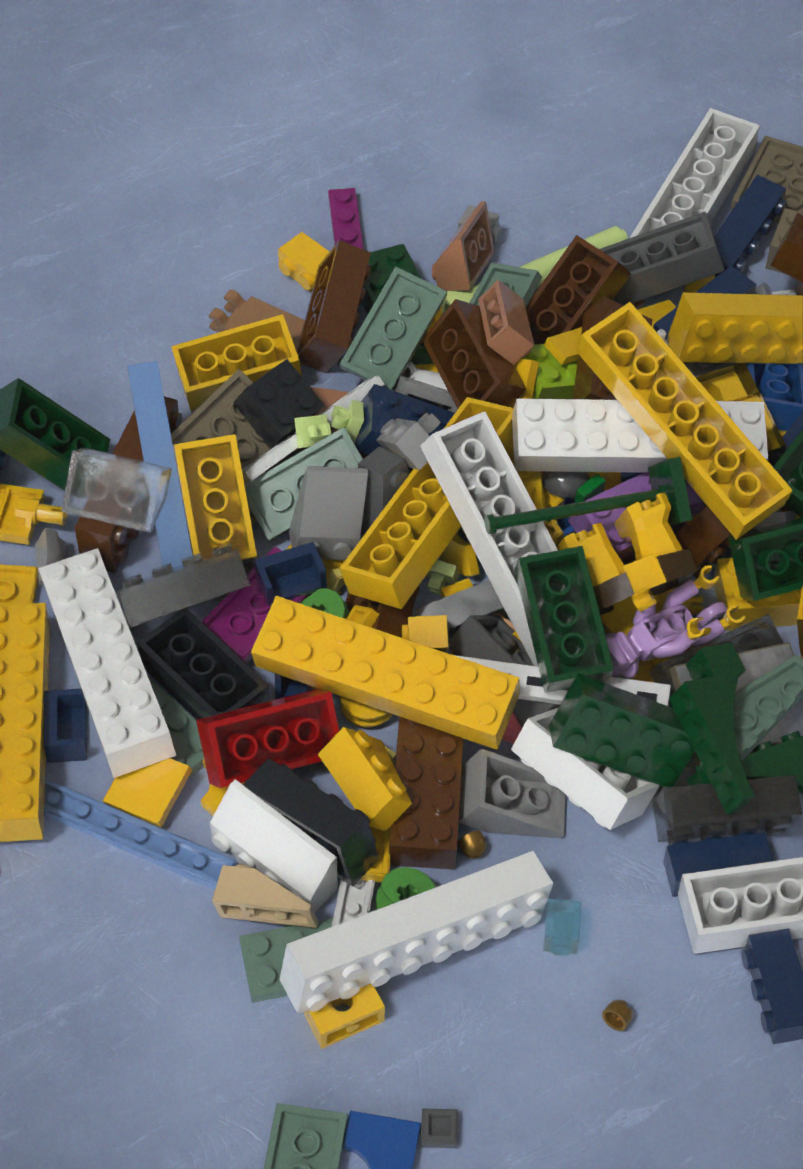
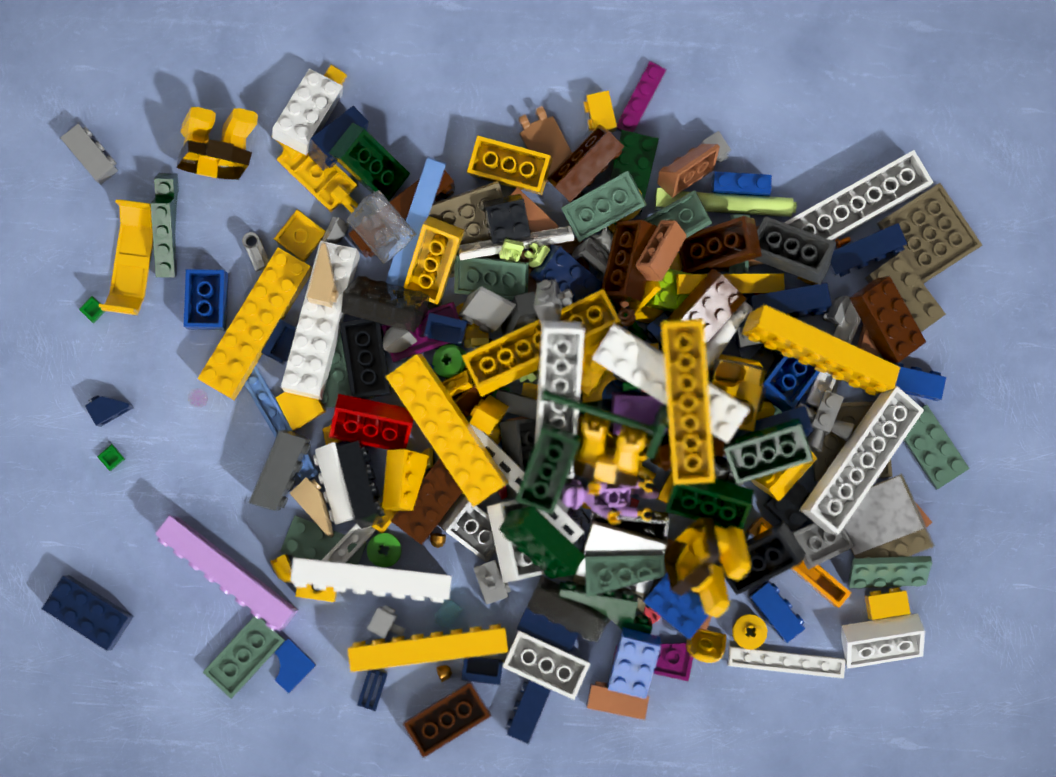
camera: 30 degrees right, 30 degrees up
(81, 594) = (323, 284): none -> tan slope
(178, 875) = (280, 470): none -> dark grey slope
(189, 1064) = (226, 572): none -> lavender brick
(233, 619) = (398, 340): none -> light grey brick
(275, 1018) = (282, 568): none -> yellow brick
(439, 1128) = (323, 671): dark grey tile -> none
(480, 987) = (384, 621): none -> light grey brick
(523, 1078) = (367, 705): none -> dark blue tile
(539, 240) = (741, 183): none -> blue brick
(570, 984) = (427, 649): none -> yellow brick
(590, 850) = (491, 582): none -> light grey brick
(672, 975) = (482, 670): none -> dark blue panel
(674, 1067) = (447, 719): none -> reddish brown brick
(707, 717) = (582, 567): dark green arch -> none

